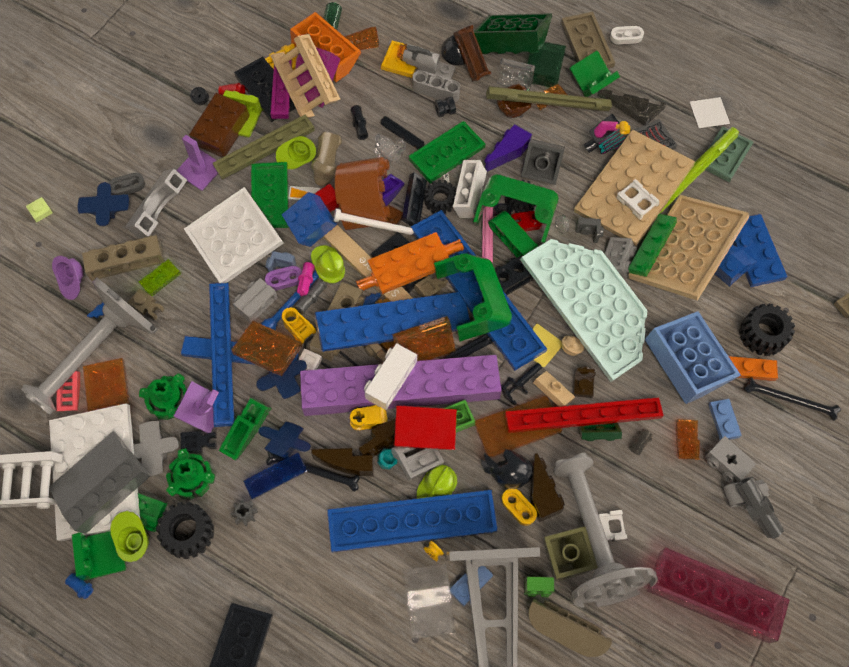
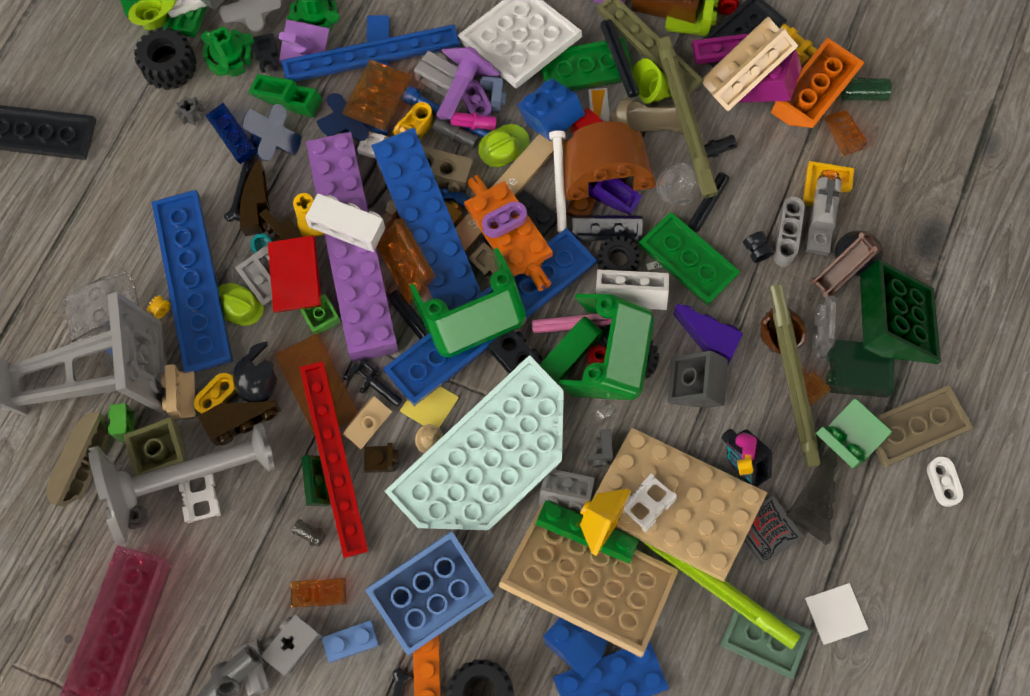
camera: 85 degrees right, 5 degrees up
(259, 272) = (470, 66): none -> medium lavender piece
(271, 167) = (620, 58): none -> black axle
(284, 130) = (687, 118): none -> olive piece
(408, 259) = (502, 218): none -> medium lavender plate
(517, 535) = (179, 393): none -> tan bracket
(653, 223) = (602, 517): none -> yellow slope

